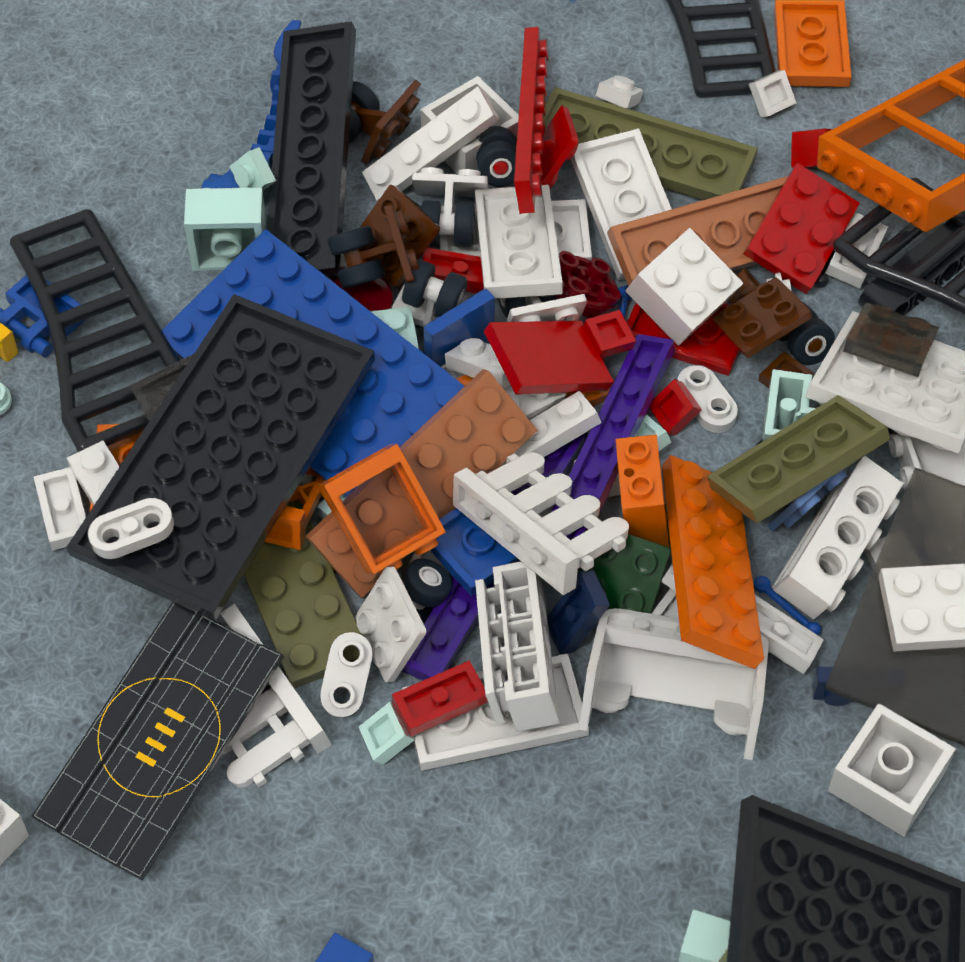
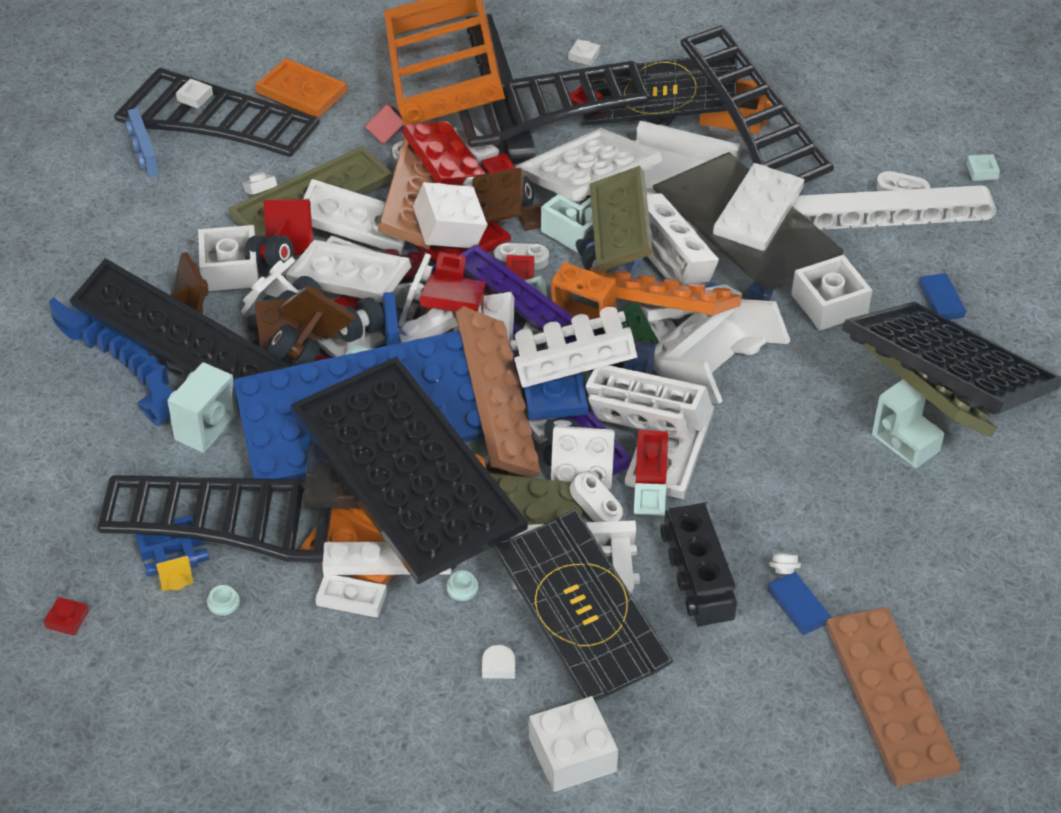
camera: 60 degrees left, 10 degrees down
(52, 700) = (498, 662): none -> white tile
(130, 526) = (438, 532): white plate -> none
(140, 607) = (462, 586): none -> light aqua plate
(252, 170) = (171, 371): light aqua plate -> none
(304, 854) = (700, 564): none -> black brick
(380, 934) = (785, 562): none -> white plate
(419, 541) = (490, 414): orange window -> none
(432, 142) = (233, 274): white plate -> none
(531, 121) = (264, 218): red plate -> none
(772, 93) = (325, 121): white plate -> none
(835, 297) = (496, 164): none -> red plate
(891, 339) = (556, 154): clear smoke plate -> none

